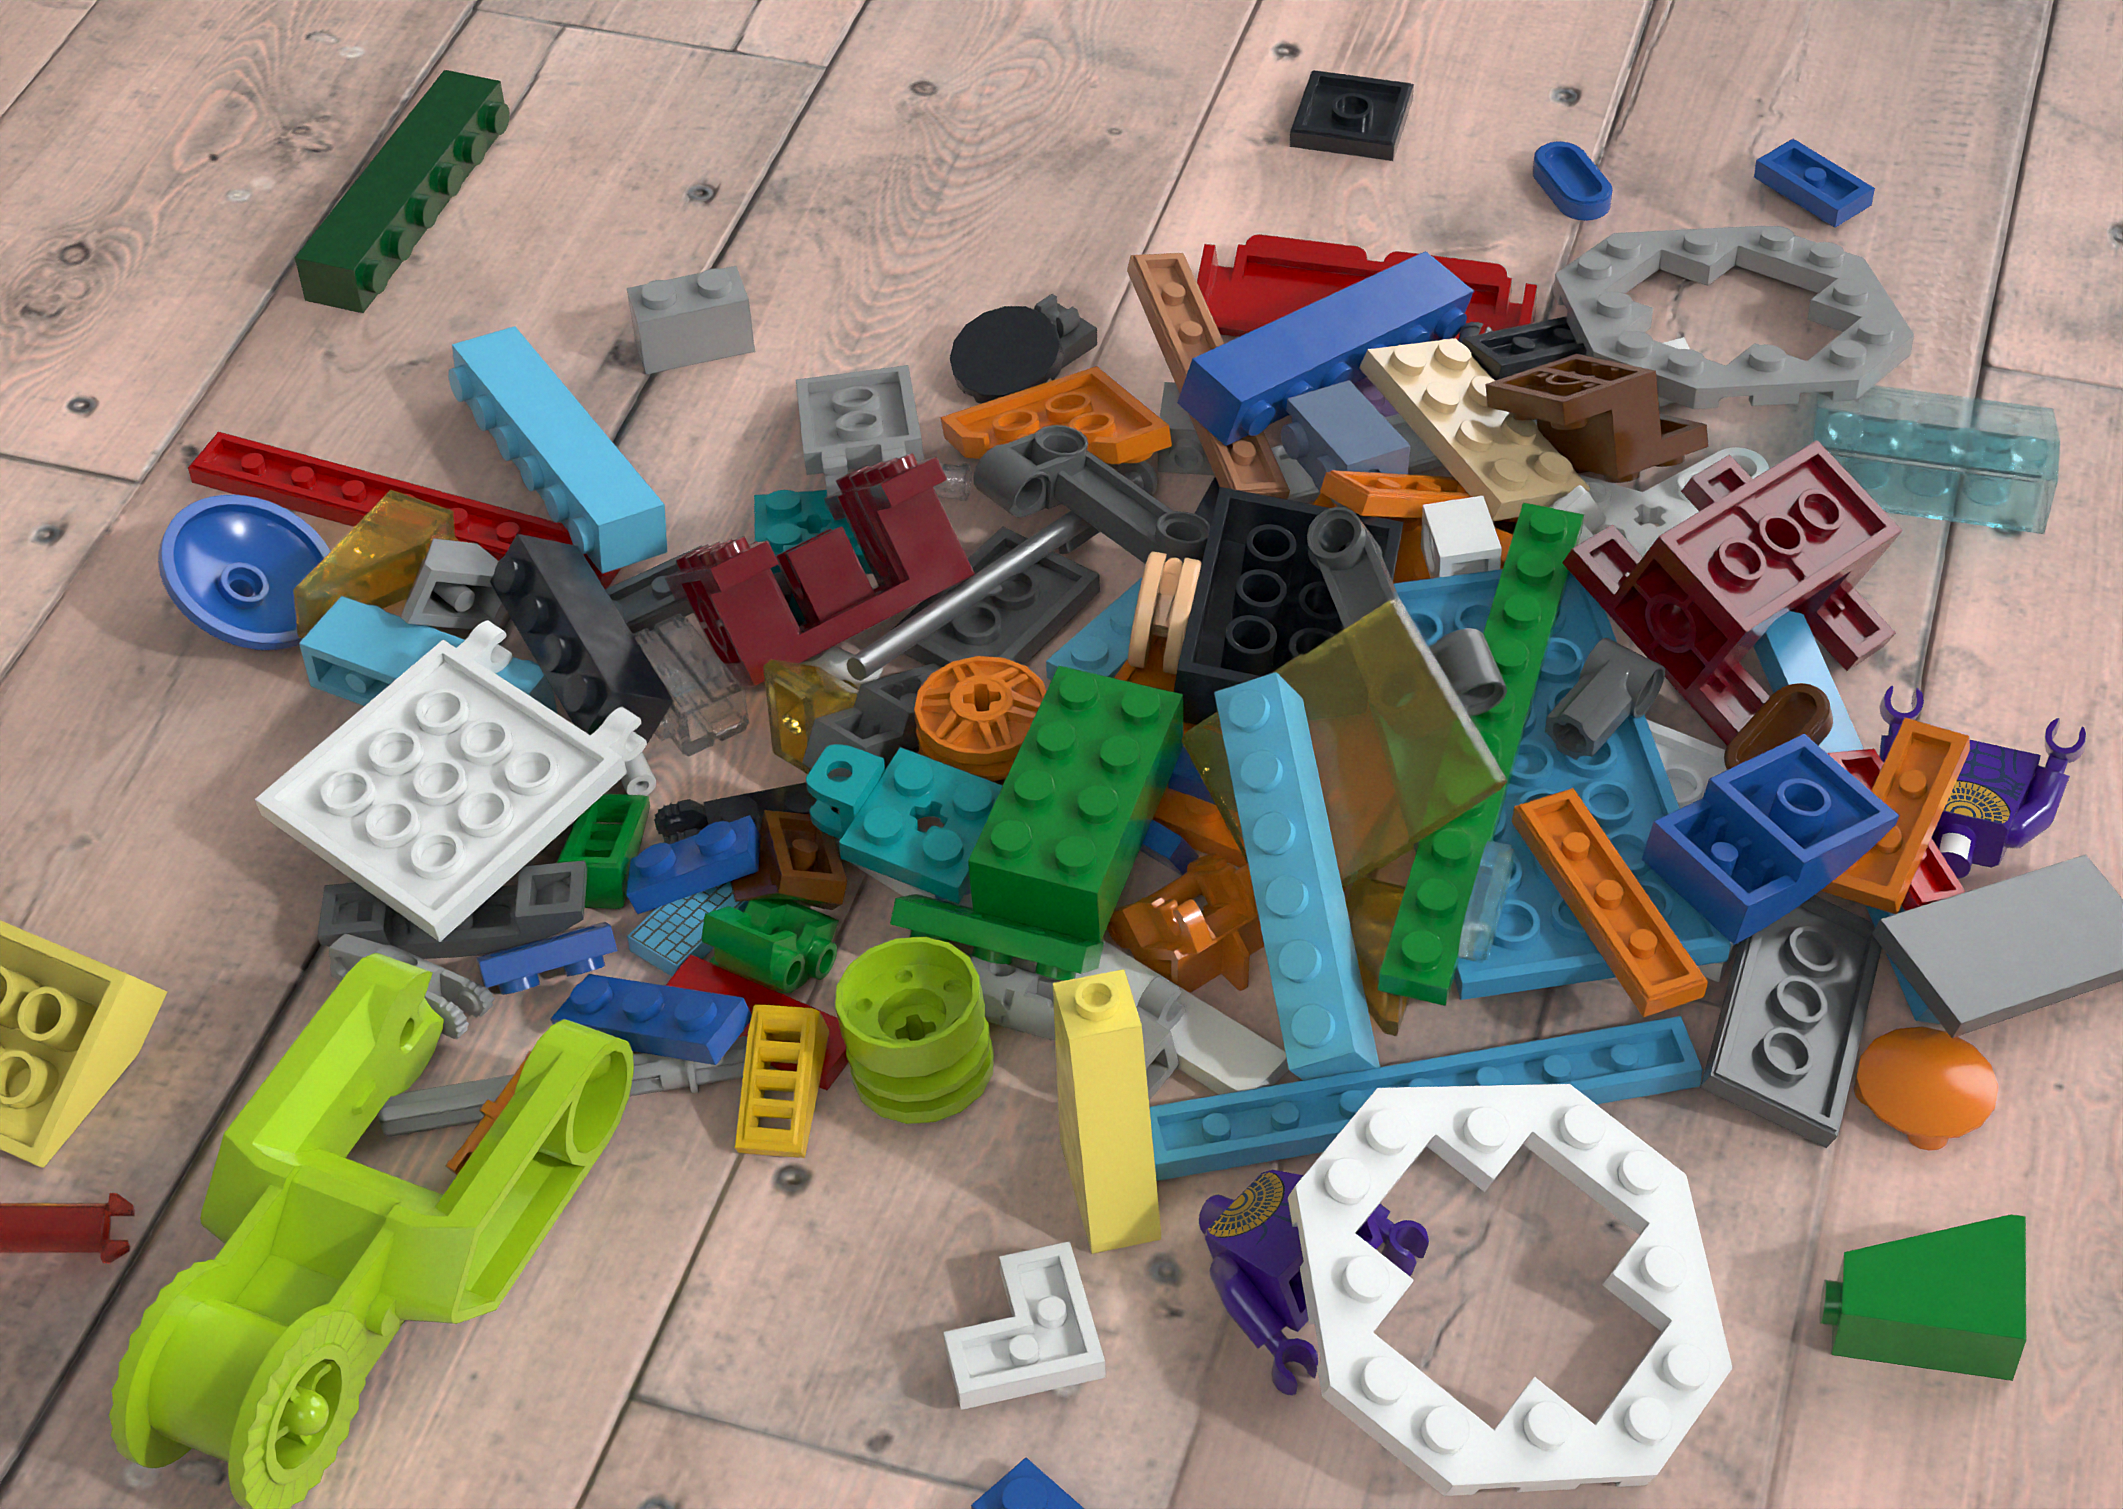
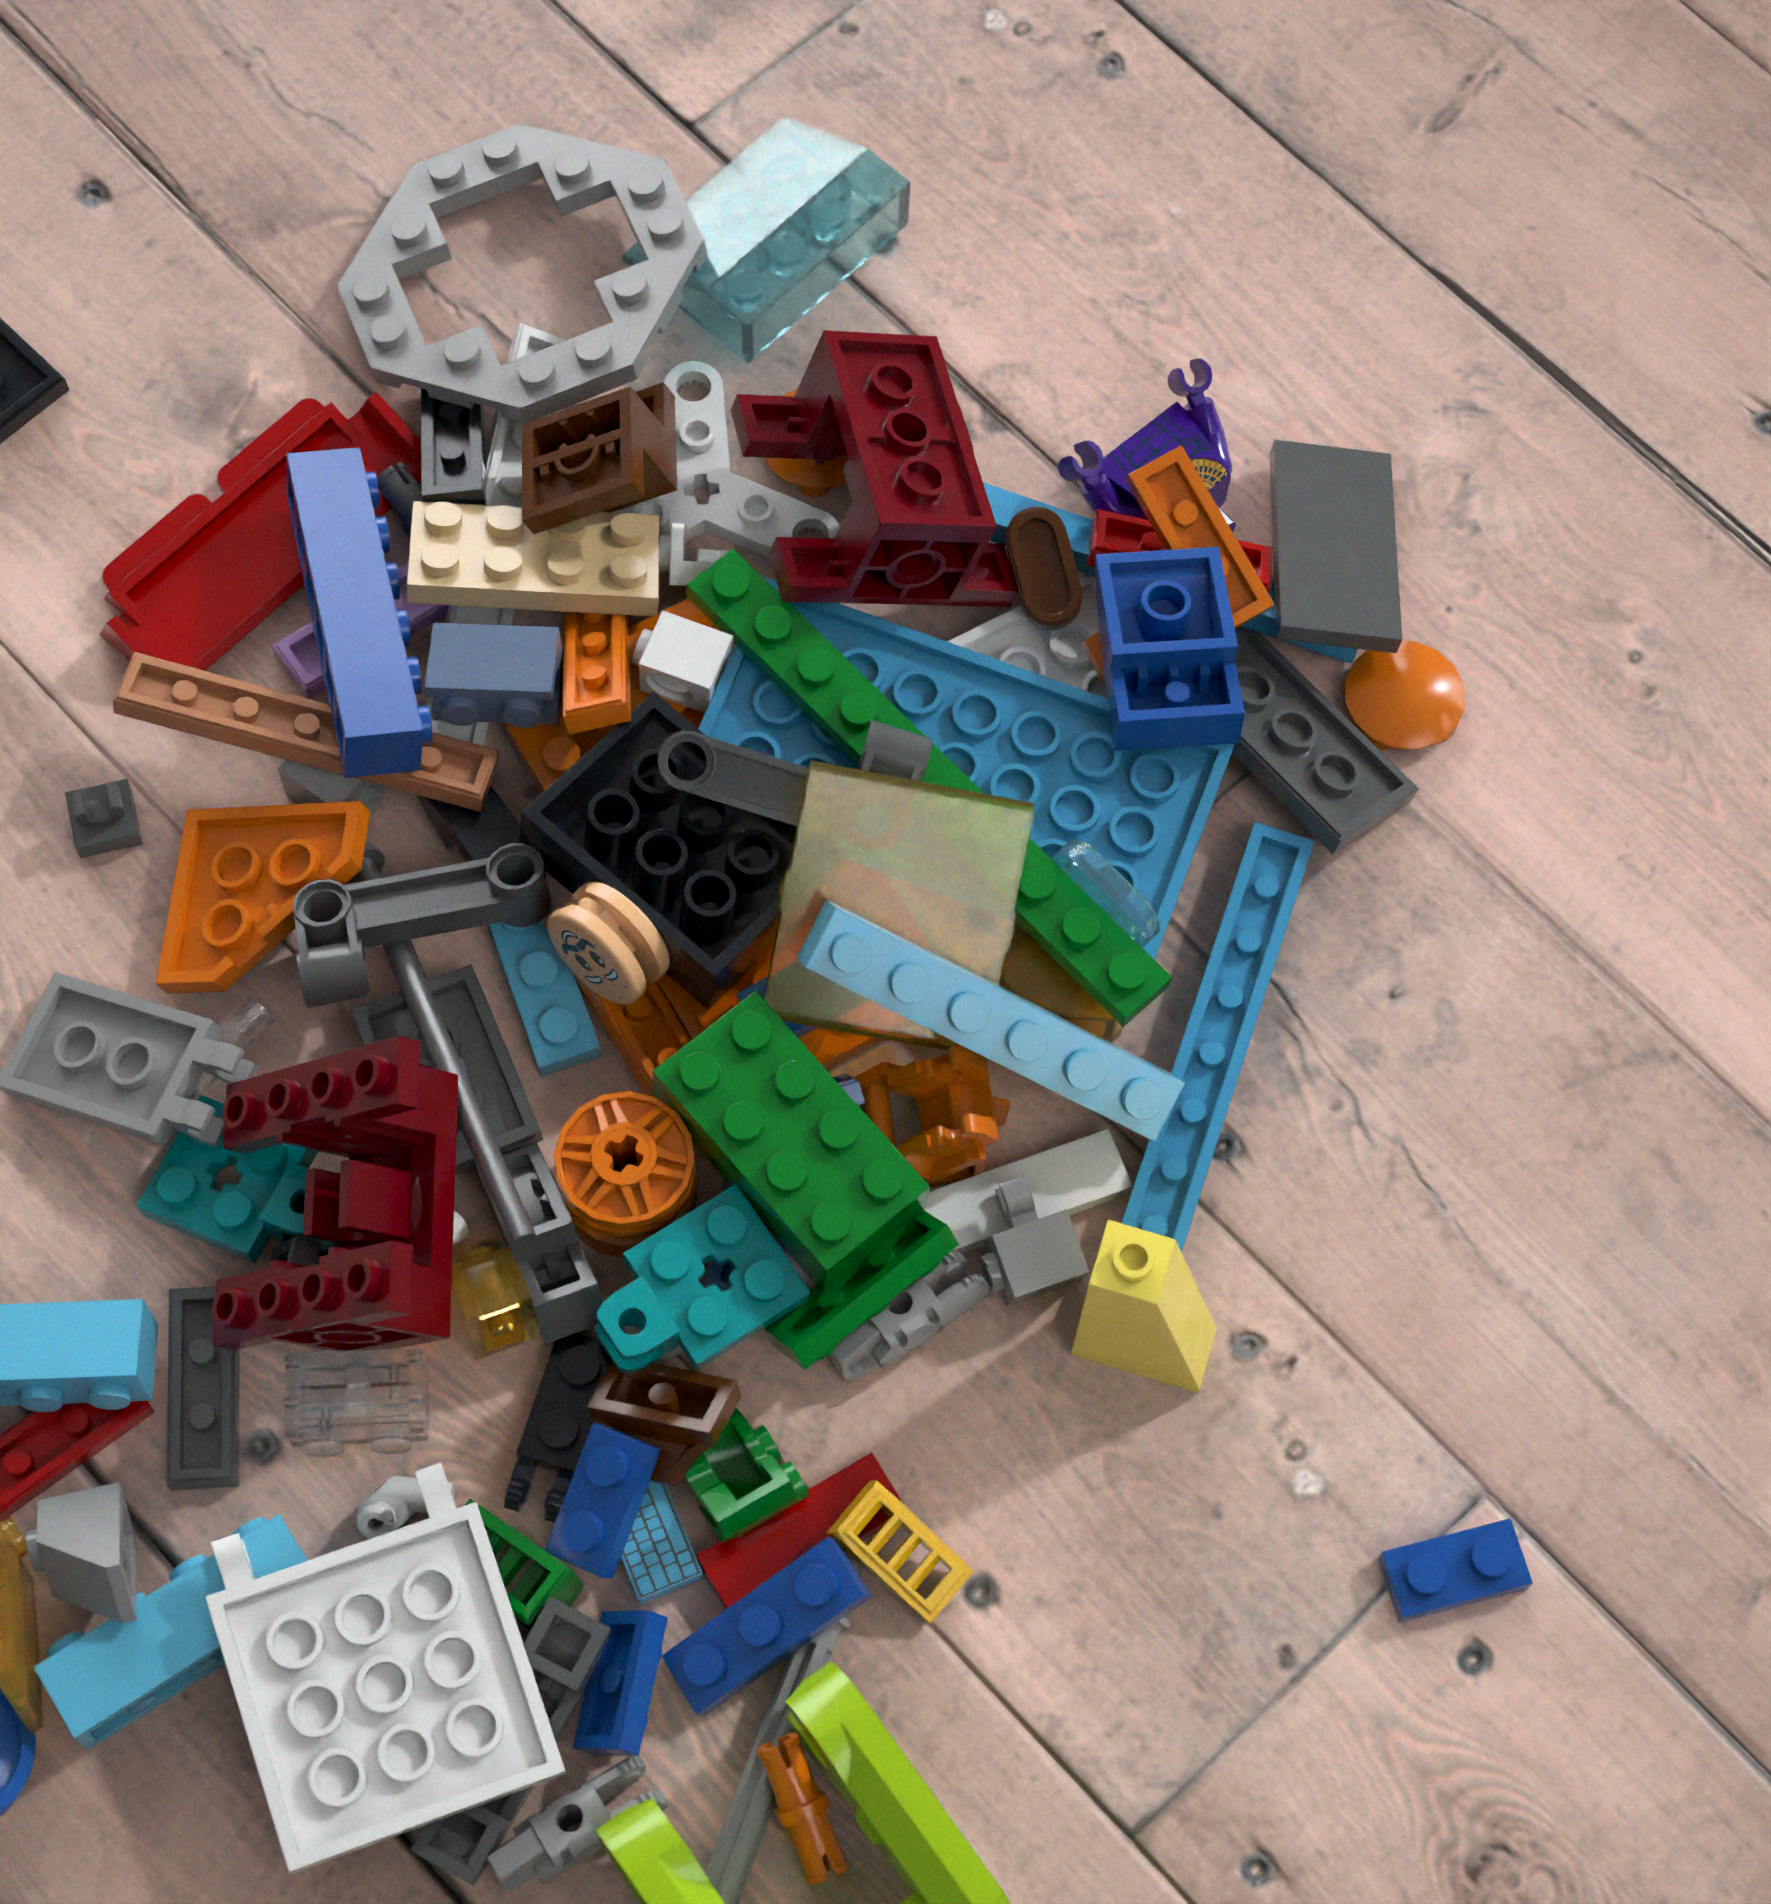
camera: 65 degrees left, 20 degrees up
(578, 635) = (266, 1466): black brick -> none
(915, 1029) = (910, 1377): lime wheel -> none
(1006, 353) = (109, 878): black tile -> none
(1042, 1345) = (1279, 1470): white plate -> none
(1260, 1262) = (1315, 1245): dark purple torso -> none
(1541, 1437) = (1417, 1219): white plate -> none
(1572, 181) = (223, 268): blue tile -> none
(1609, 689) = (943, 654): dark grey piece -> none
(1609, 903) = (1147, 802): orange tile -> none
(1814, 182) = (386, 91): blue plate -> none
(1935, 1300) = (1606, 821): green slope -> none

